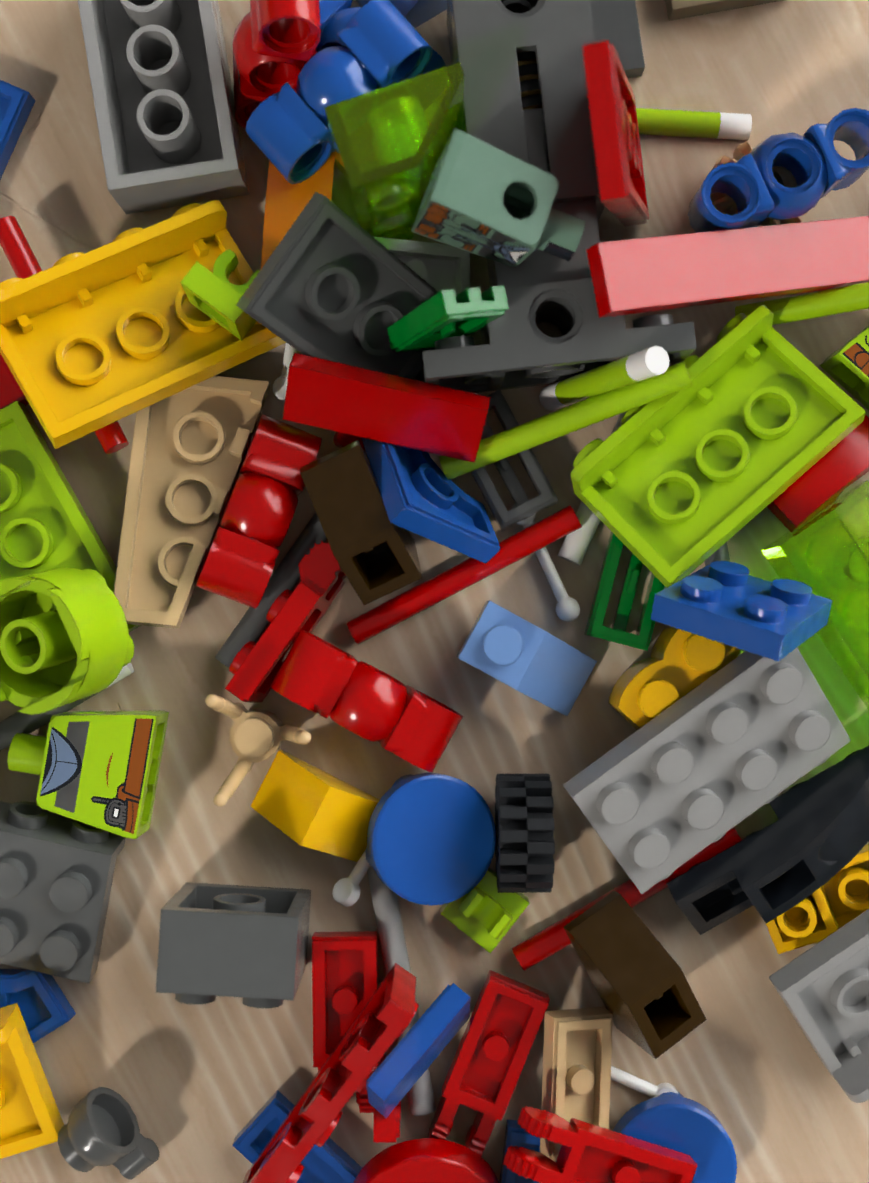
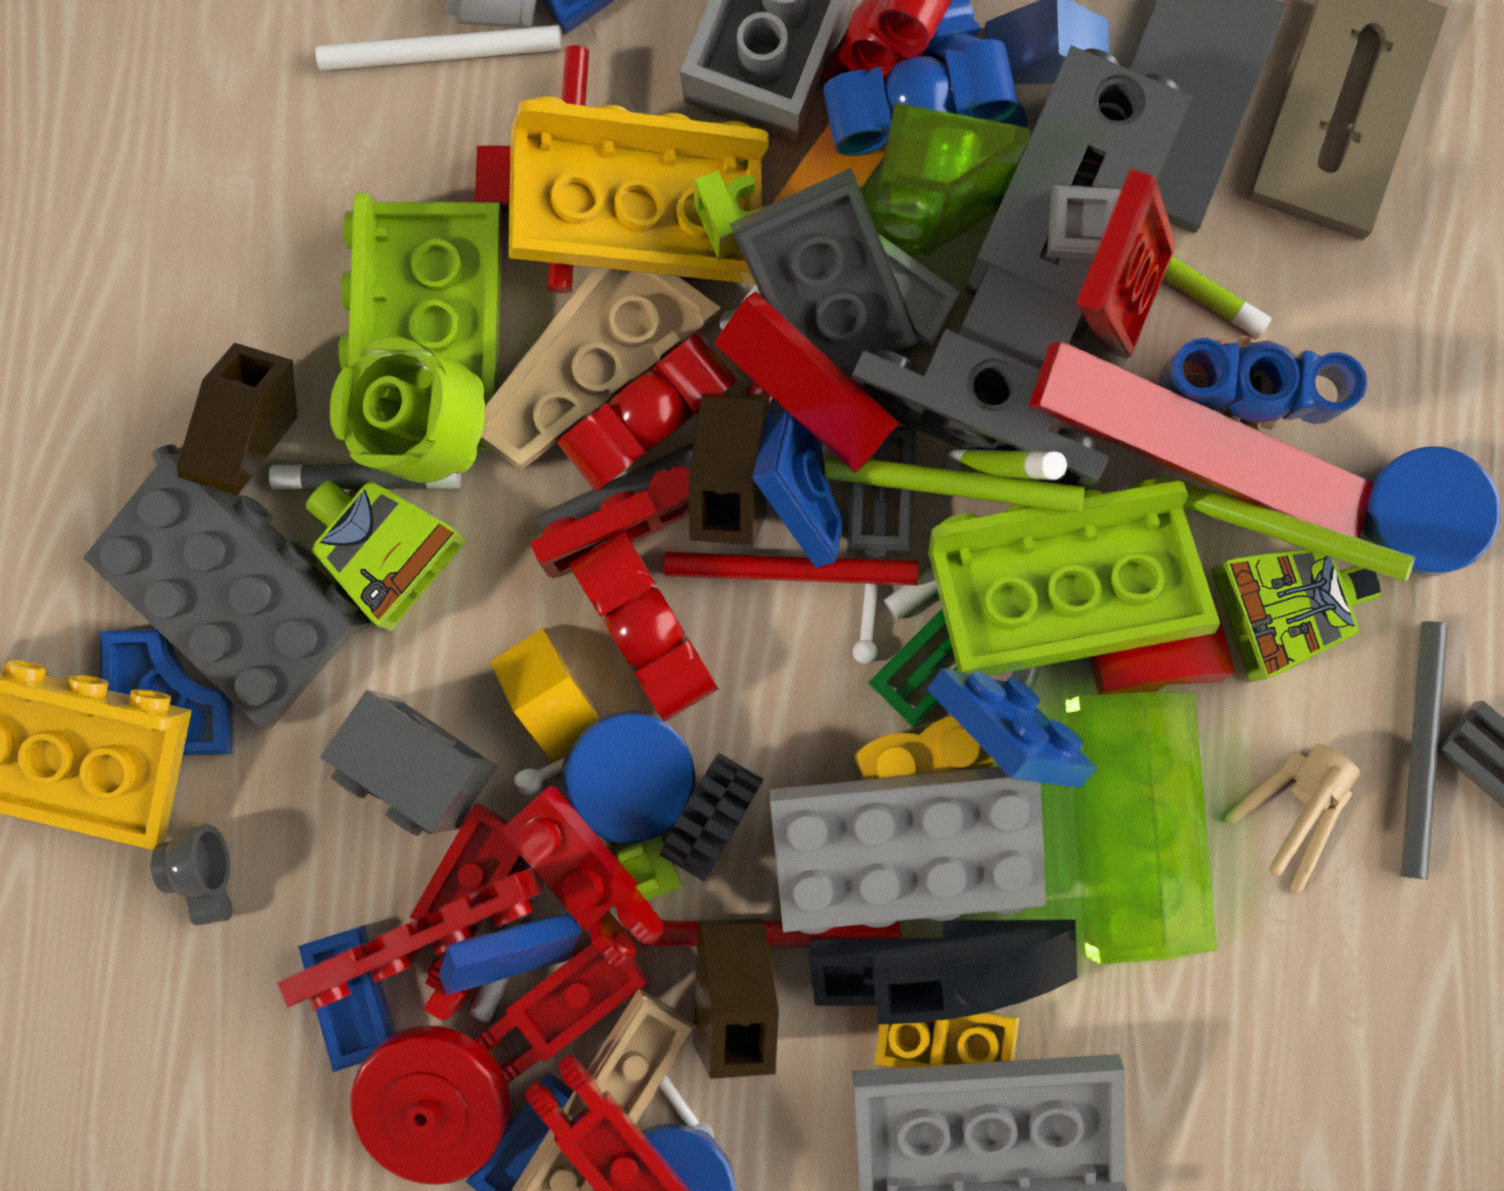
camera: 40 degrees right, 5 degrees down
(253, 738) = (527, 601): tan plant -> none
(444, 948) = (583, 875): none -> red hinge
(447, 317) = (905, 335): green tile -> none
(476, 190) = (987, 235): sand green torso -> none
(526, 658) = (803, 670): medium blue slope -> none
(552, 121) = (1078, 220): none -> light grey tile

